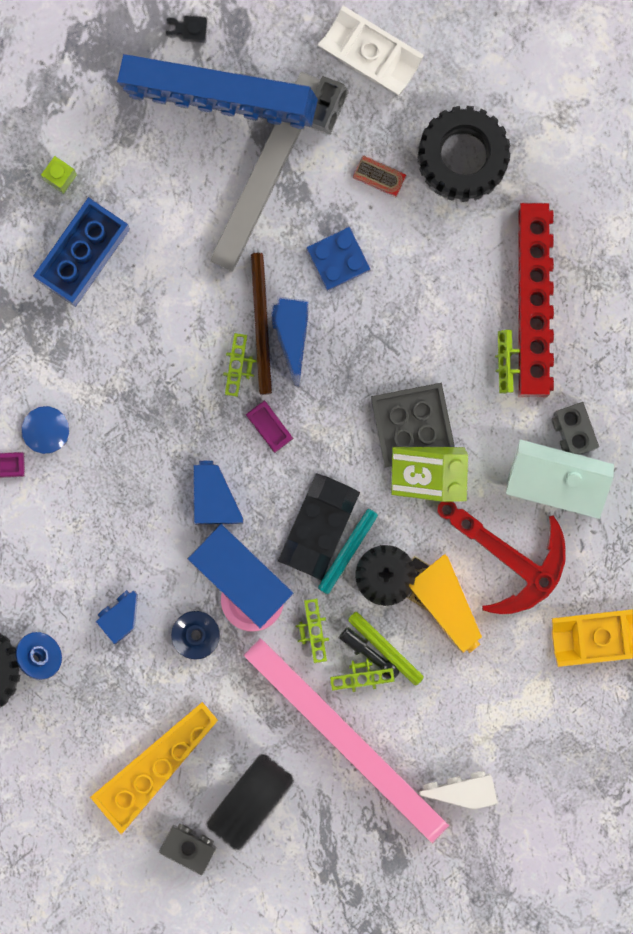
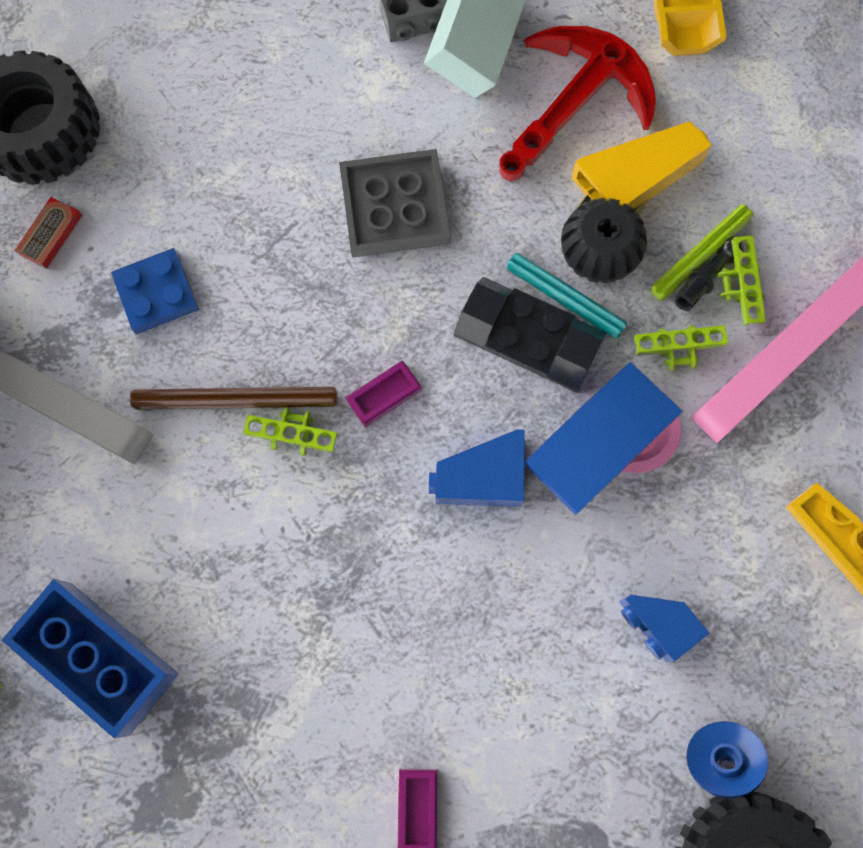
camera: 80 degrees left, 10 degrees down
(45, 430) = (366, 731): blue dish -> none
(183, 640) = (702, 498): dark blue dish -> none
(290, 322) = (253, 332): blue slope -> none
(430, 473) = (463, 175): lime slope -> none
(505, 351) = (312, 91): lime piece -> none
(527, 215) = (239, 49): red brick -> none

